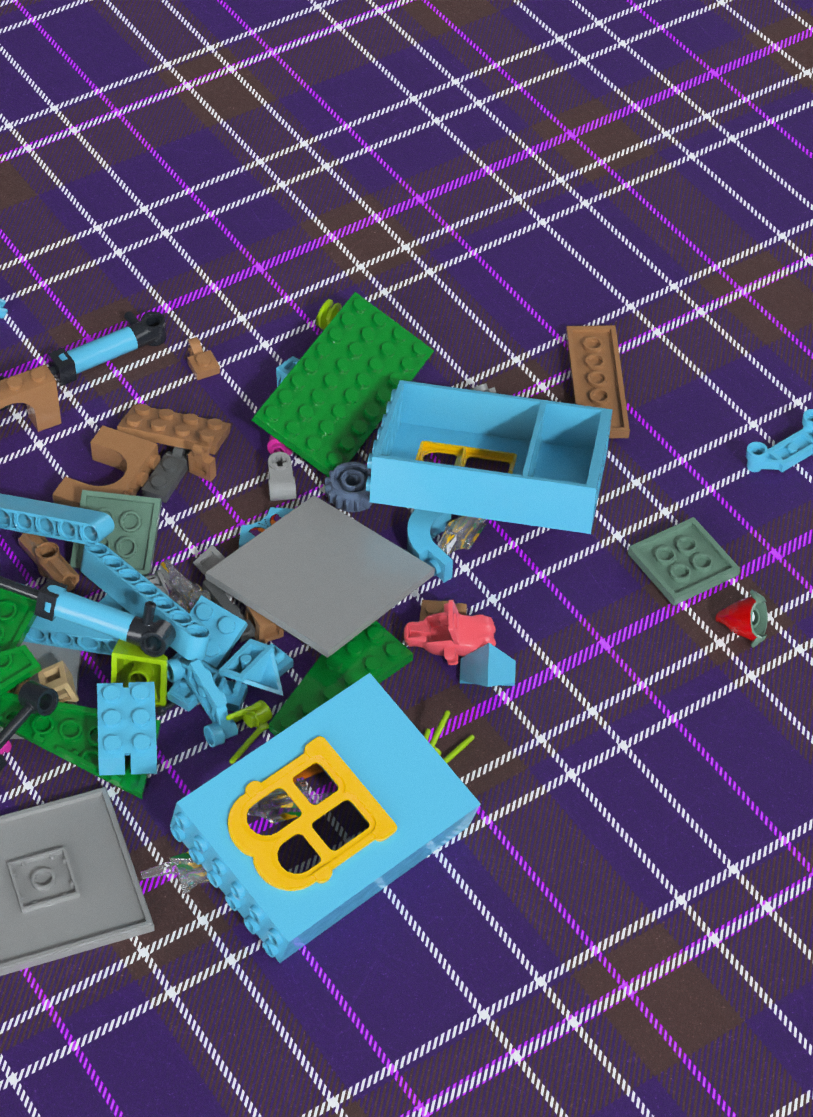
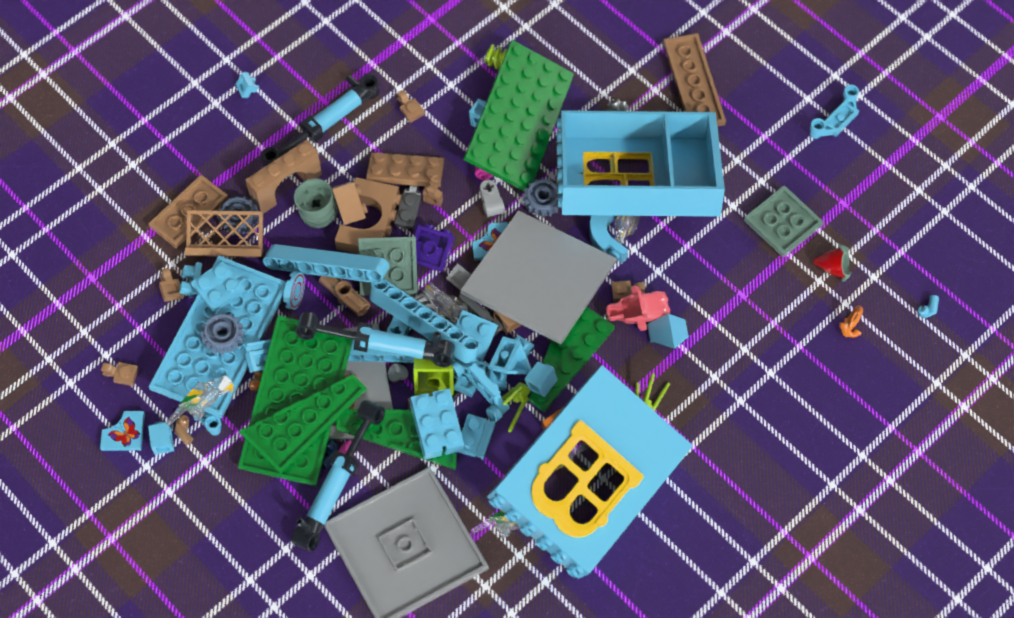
camera: 10 degrees left, 15 degrees up
(40, 448) = (316, 203): none -> sand green wheel
(61, 680) = (378, 393): tan brick -> none
(84, 450) = (349, 202): none -> medium nougat brick
(94, 668) = (397, 372): none -> light grey piece
(182, 760) = (476, 436): none -> medium azure plate
(185, 522) = (433, 247): none -> dark purple plate
(289, 697) = (541, 378): none -> medium azure brick
(744, 701) = (850, 323): none -> orange piece

